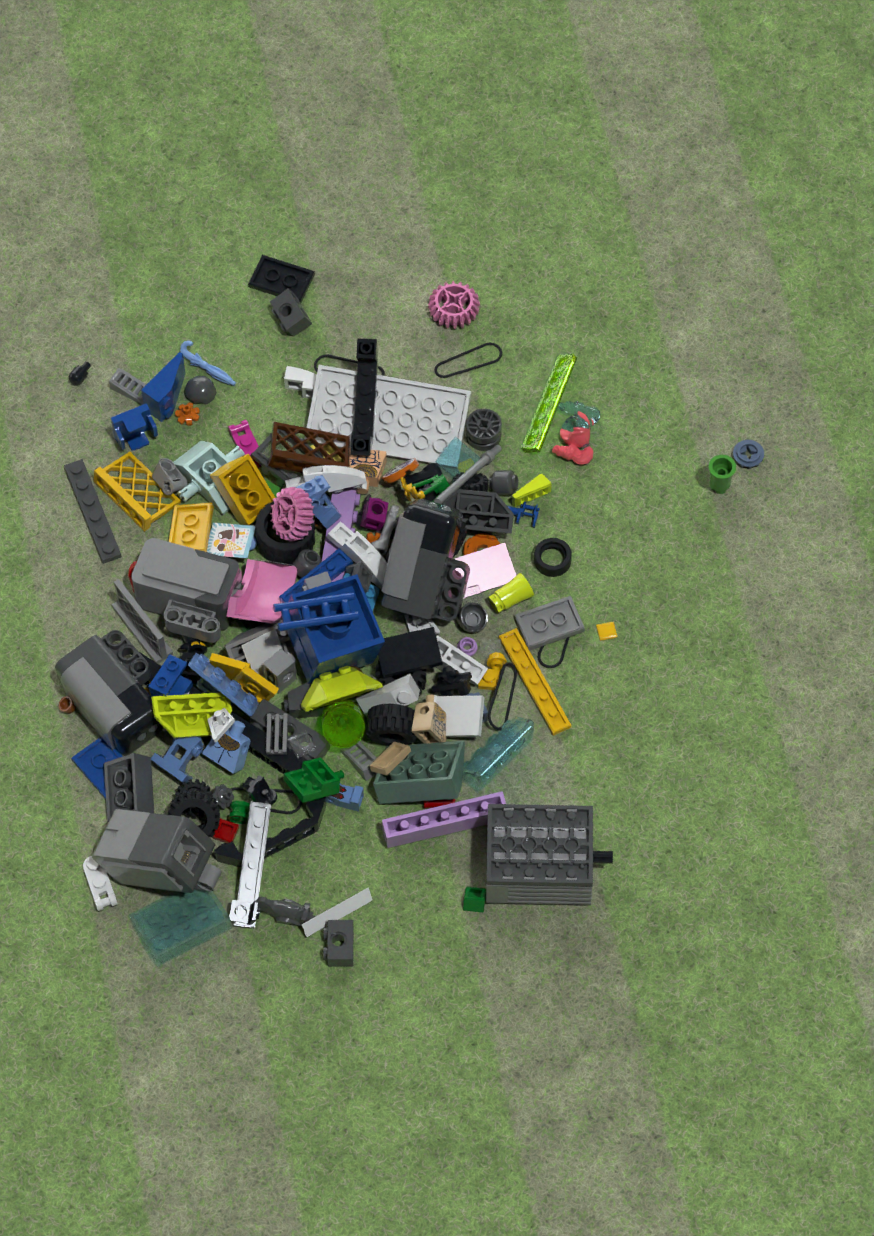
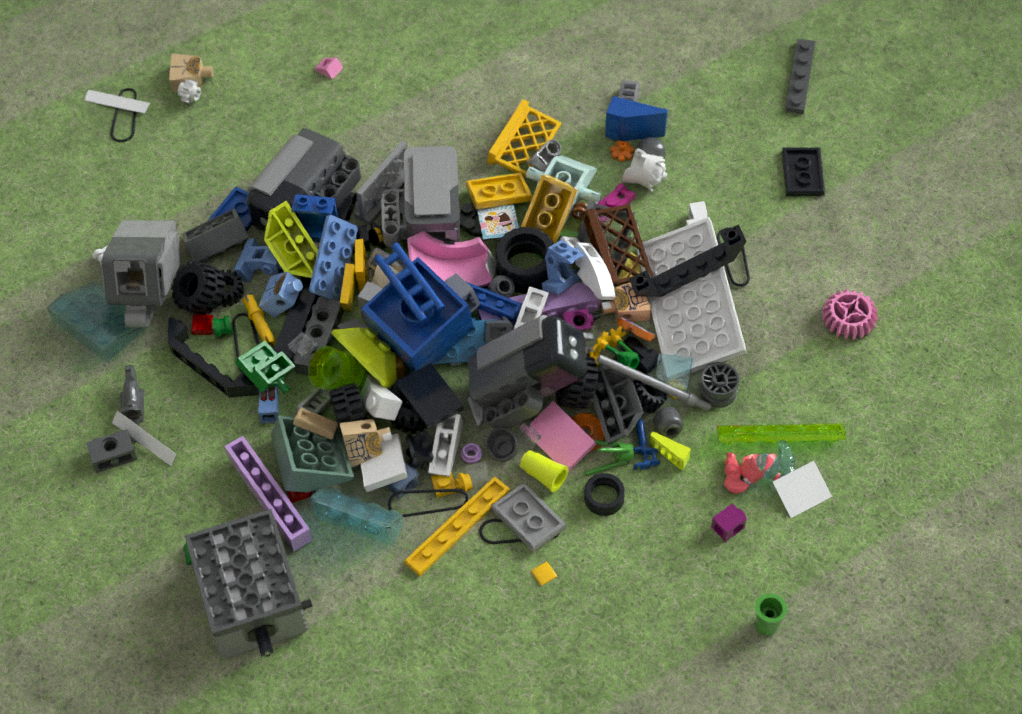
camera: 70 degrees right, 5 degrees down
(79, 373) = (620, 60): black cylinder -> none
(92, 511) = (488, 117): dark grey plate -> none
(132, 427) = (583, 108): blue panel -> none
(170, 237) = (800, 76): none -> dark grey plate
(196, 360) = (680, 137): light blue piece -> none
(220, 723) = (290, 269): white piece -> none
(223, 796) = (233, 307): dark grey plant -> none
(225, 401) = (645, 170): none -> white hat
(238, 779) = (256, 315): none -> yellow pin
(253, 858) = (167, 349): tile -> none
(253, 911) = (116, 365): bracket -> none
(259, 790) = (240, 330): black hips -> none
(277, 717) = (305, 320): light grey tile -> none
(283, 305) = (766, 187): dark grey brick -> none
(292, 514) = (530, 246): bright pink gear -> none
(472, 368) = (803, 344): black piece -> none
(518, 530) = (621, 451): none -> bright green plant
(609, 409) = (802, 489): none -> white sticker
(619, 473) = (729, 522): none -> magenta brick
(754, 448) = (820, 632): sand blue gear -> none

